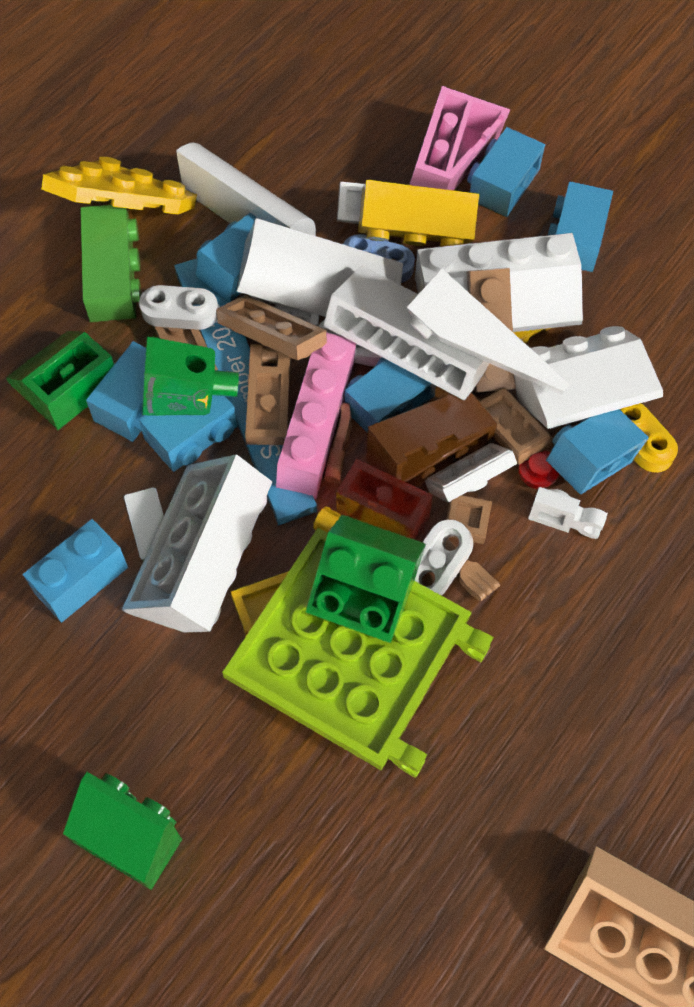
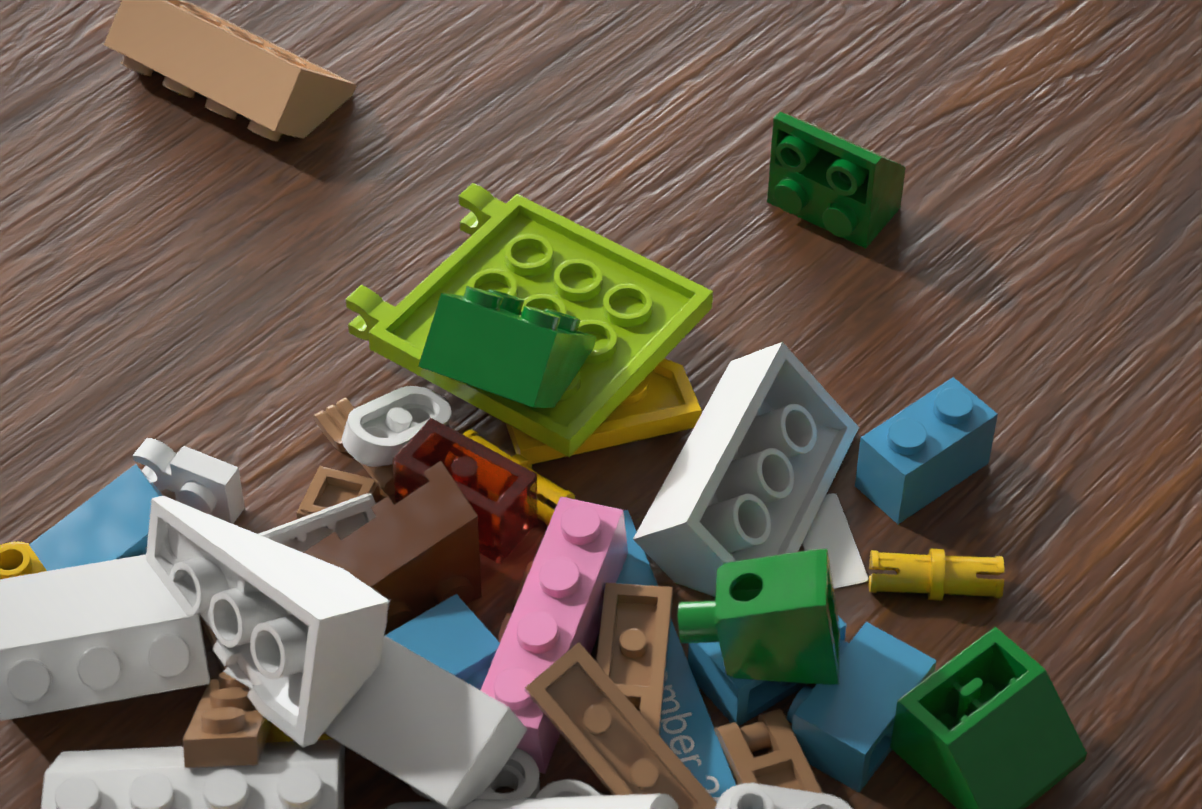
camera: 175 degrees left, 15 degrees down
(79, 490) = (936, 574): none -> yellow pin

